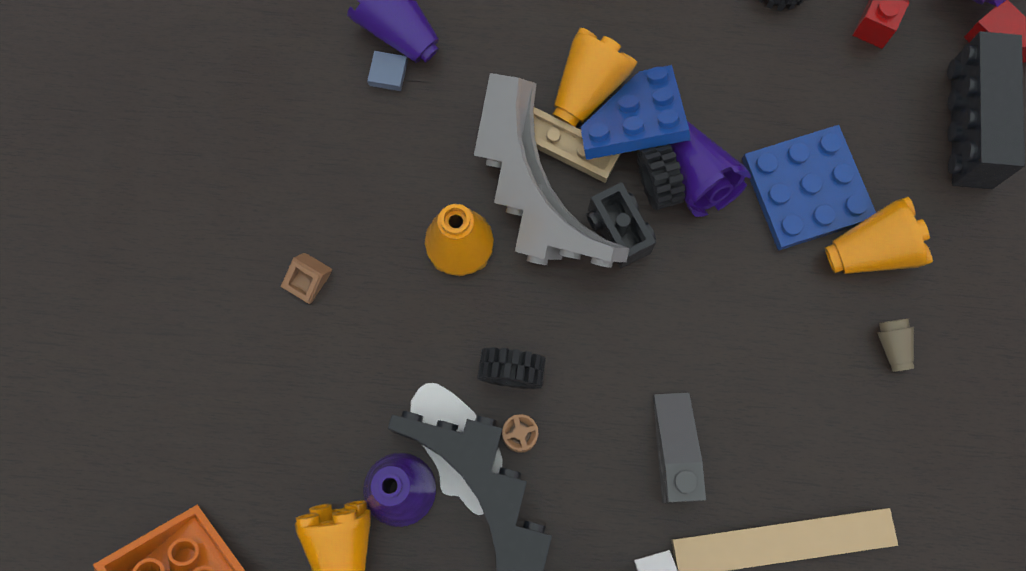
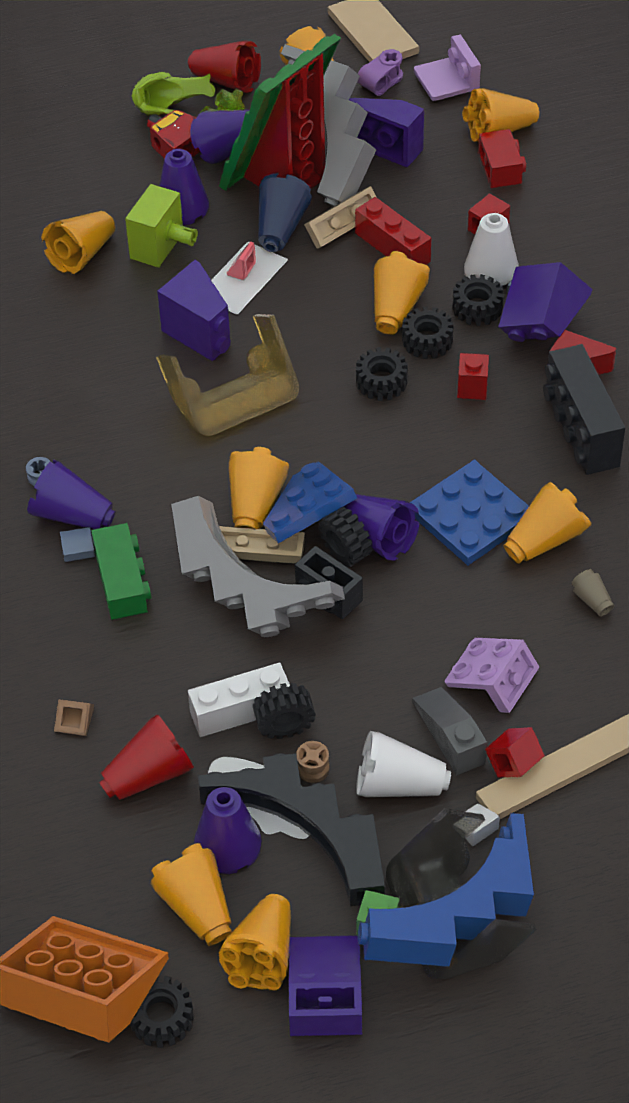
camera: 20 degrees left, 25 degrees down
(351, 370) = (145, 761): none -> red cone
(415, 123) = (121, 571): none -> green brick
(459, 241) = (195, 635): light orange cone -> none
(472, 329) = (231, 700): none -> white brick
(600, 487) = (399, 770): none -> white cone
(732, 516) = (514, 752): none -> red brick
(751, 397) = (498, 666): none -> lavender bracket

